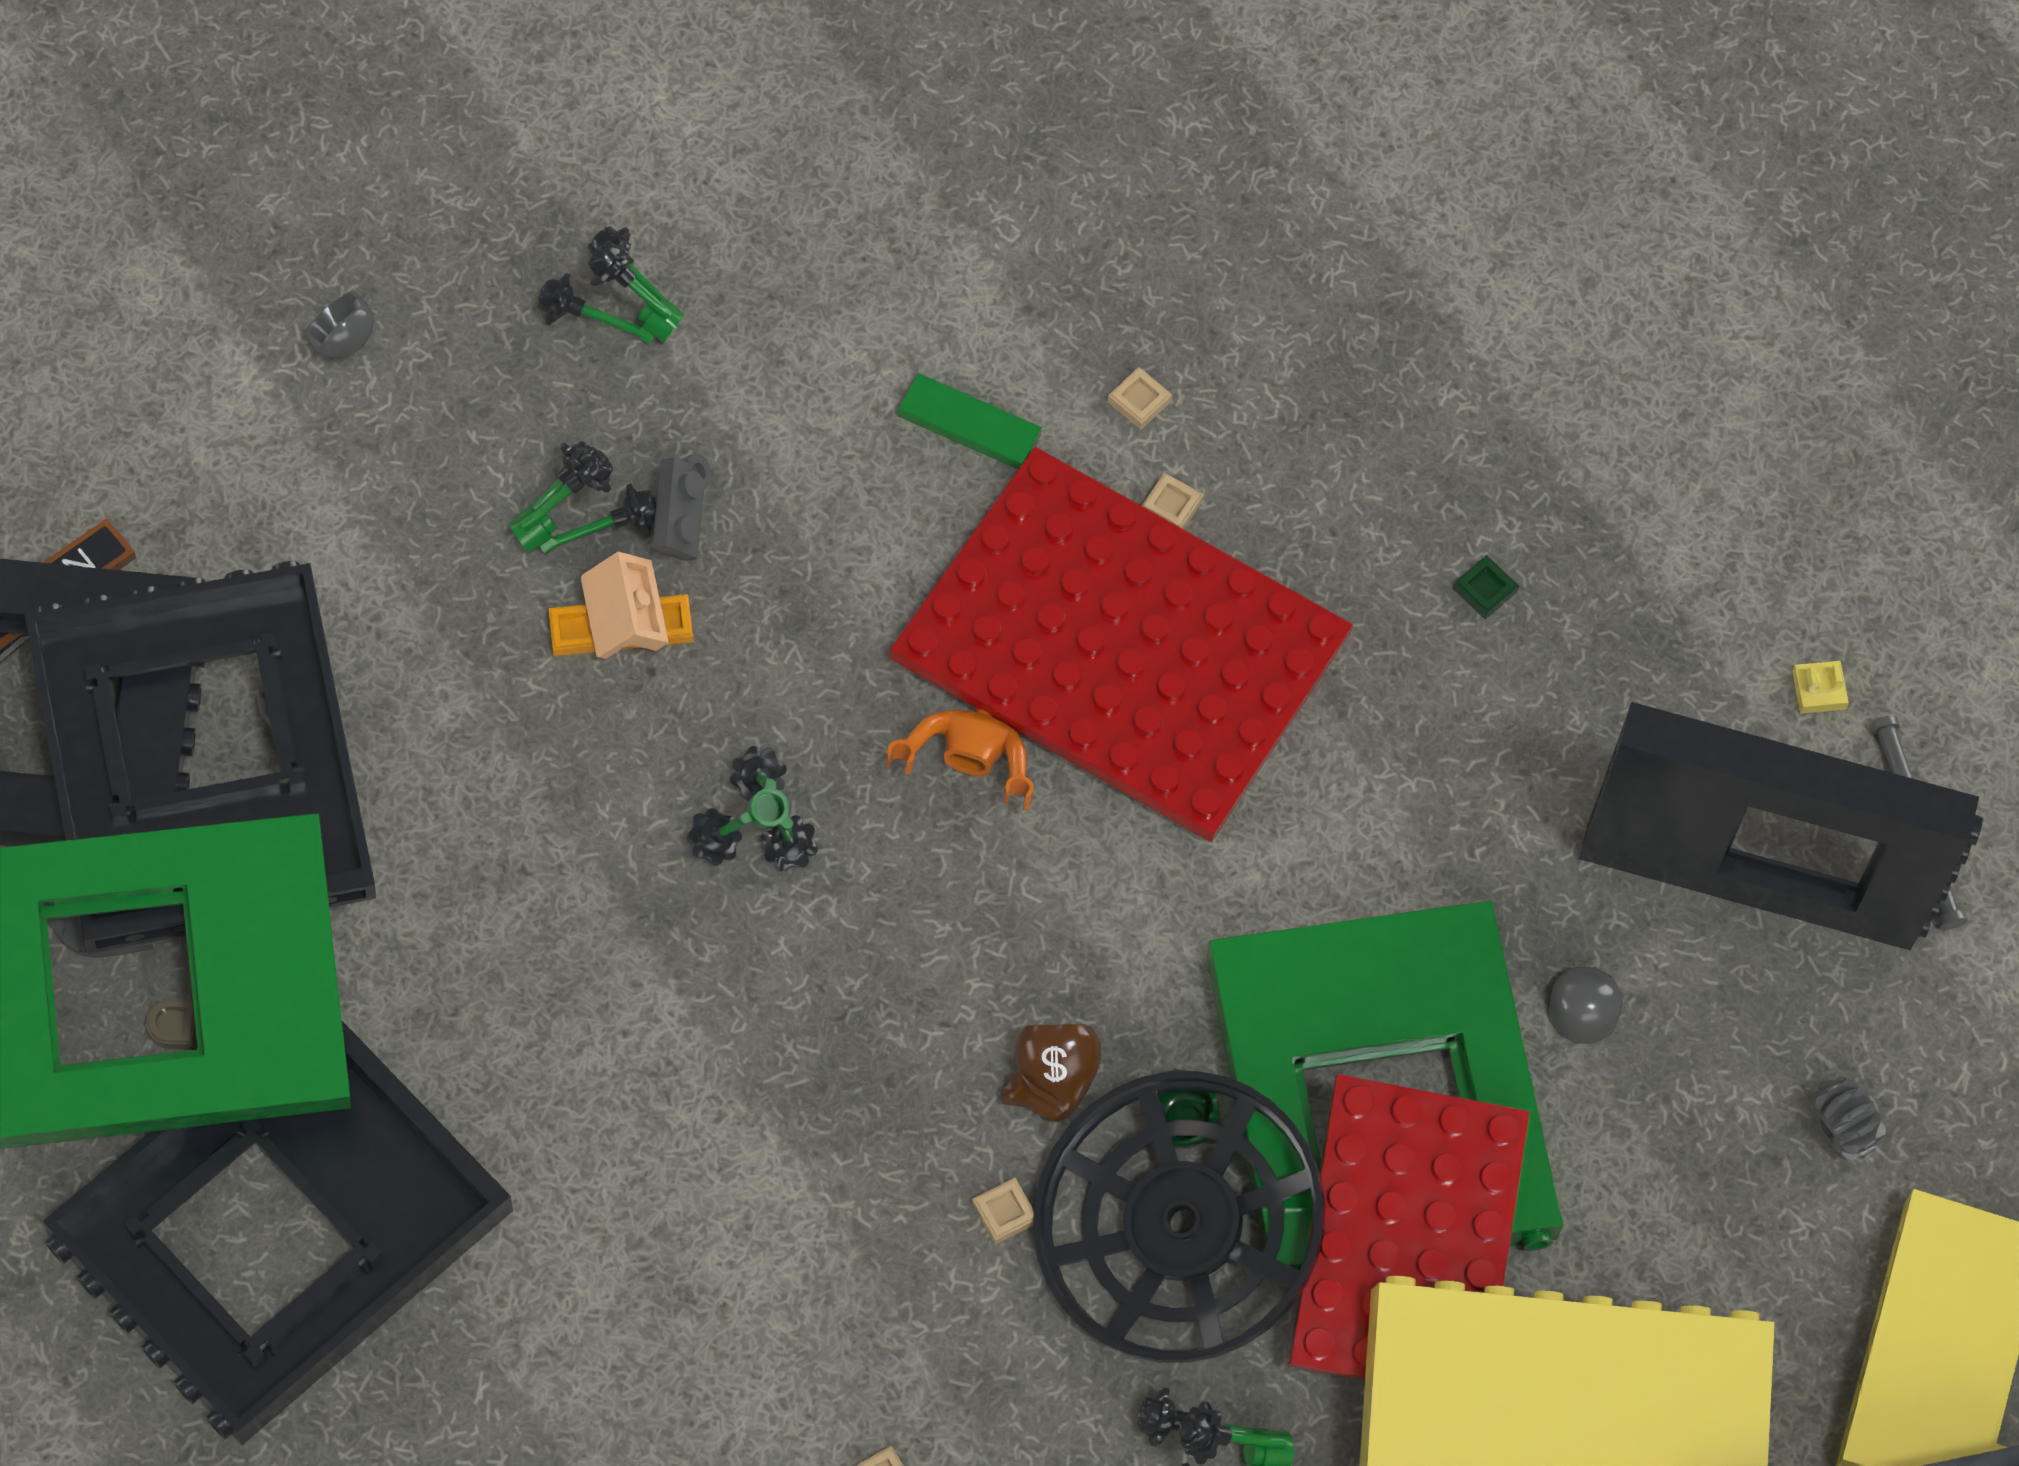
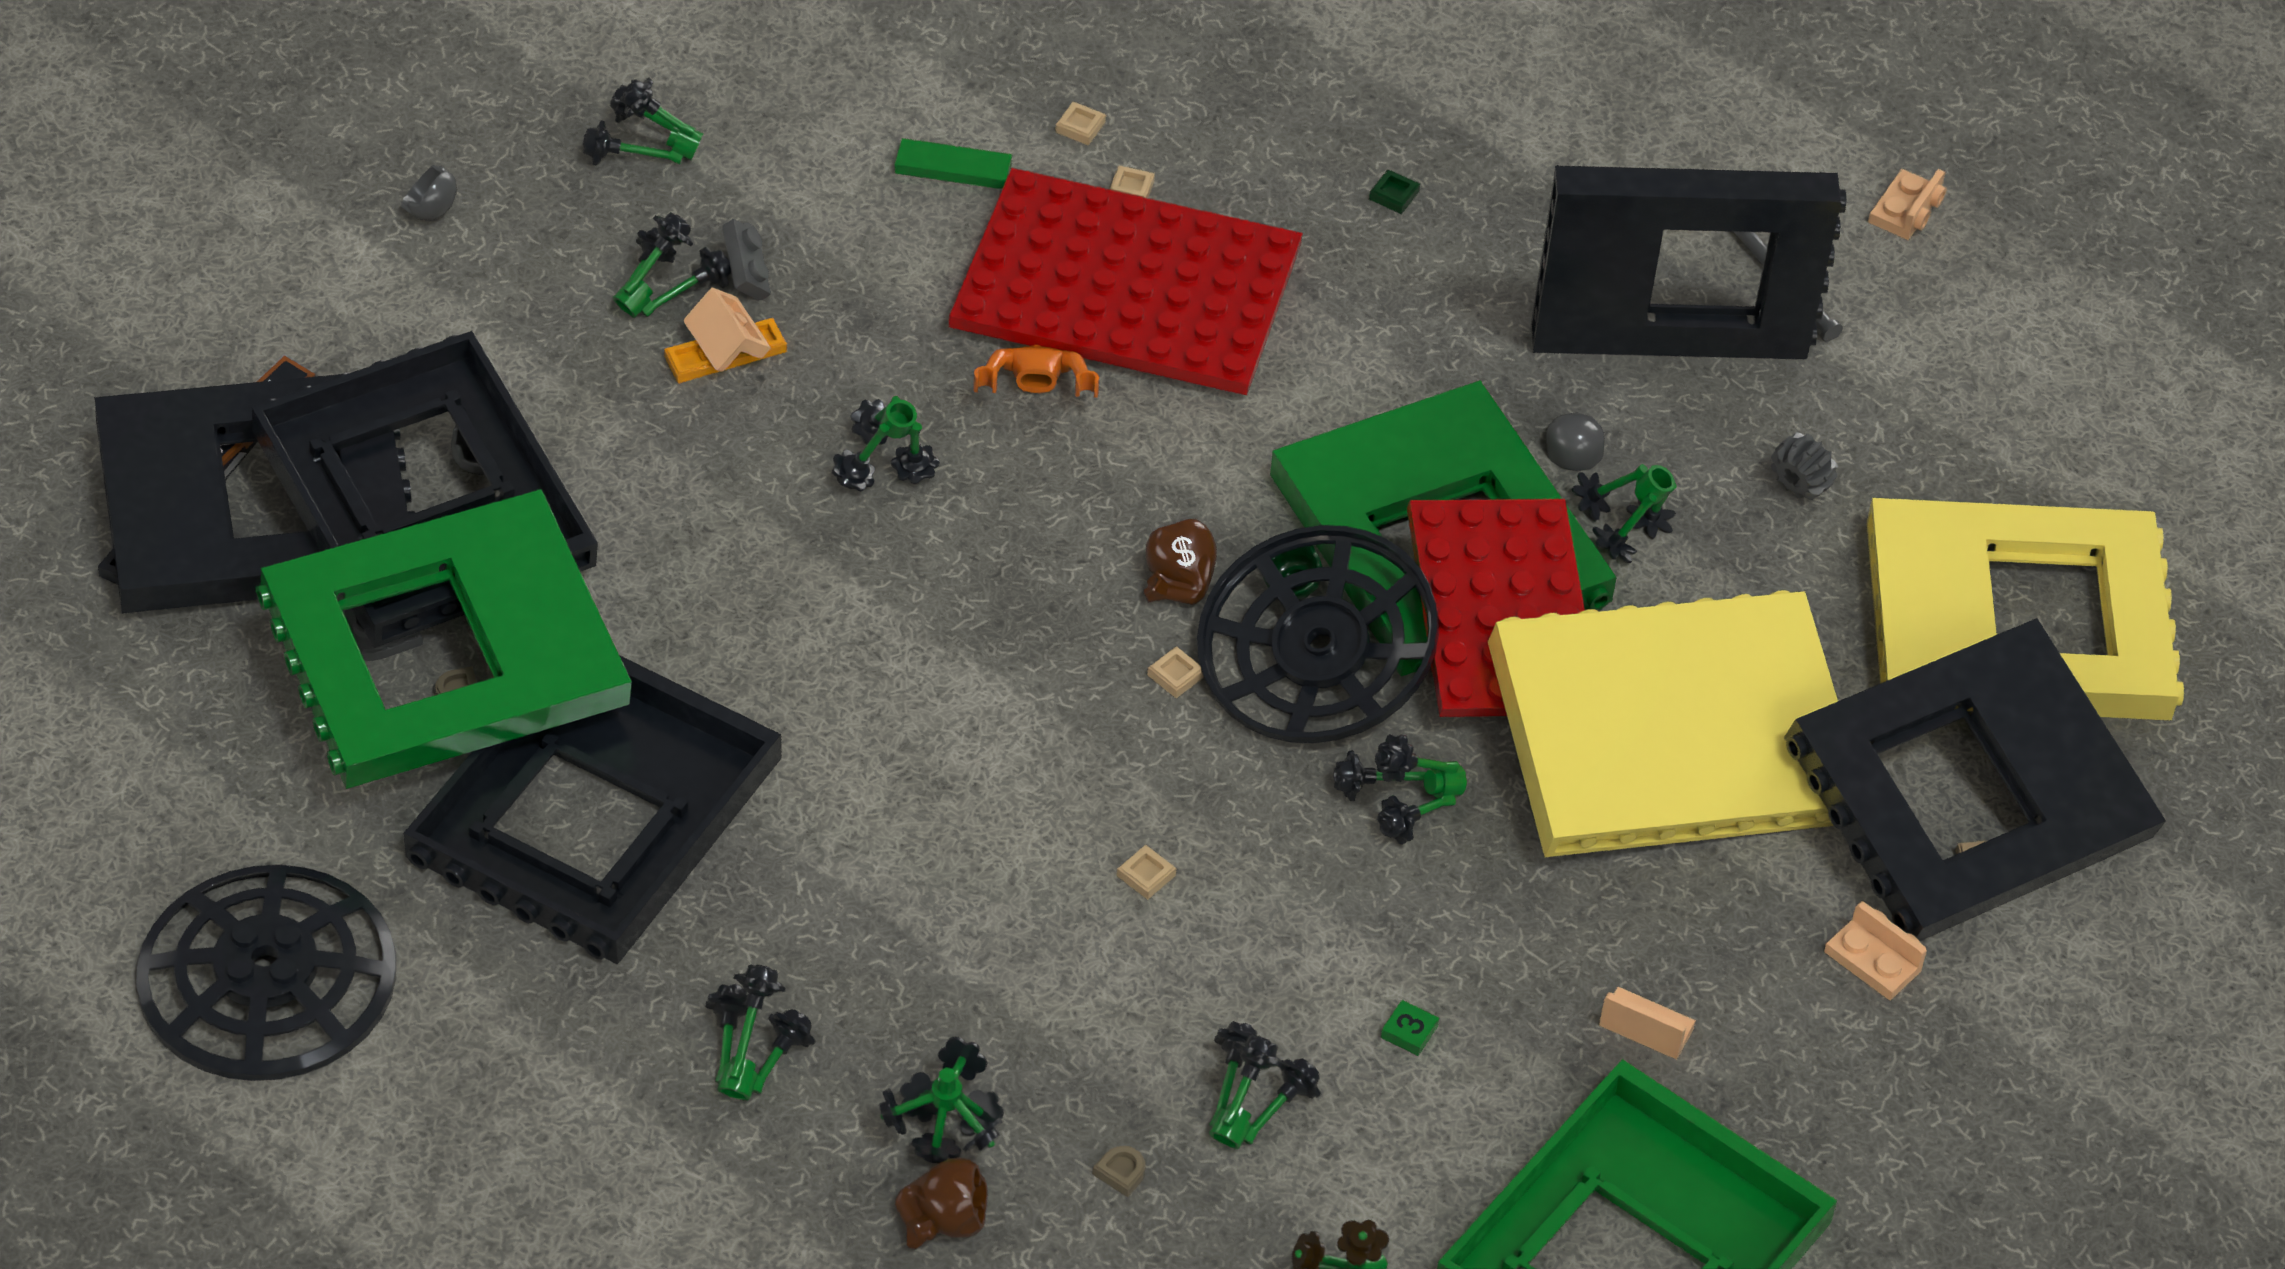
camera: 15 degrees left, 15 degrees down
(1641, 1121) = (1651, 491): none -> plant

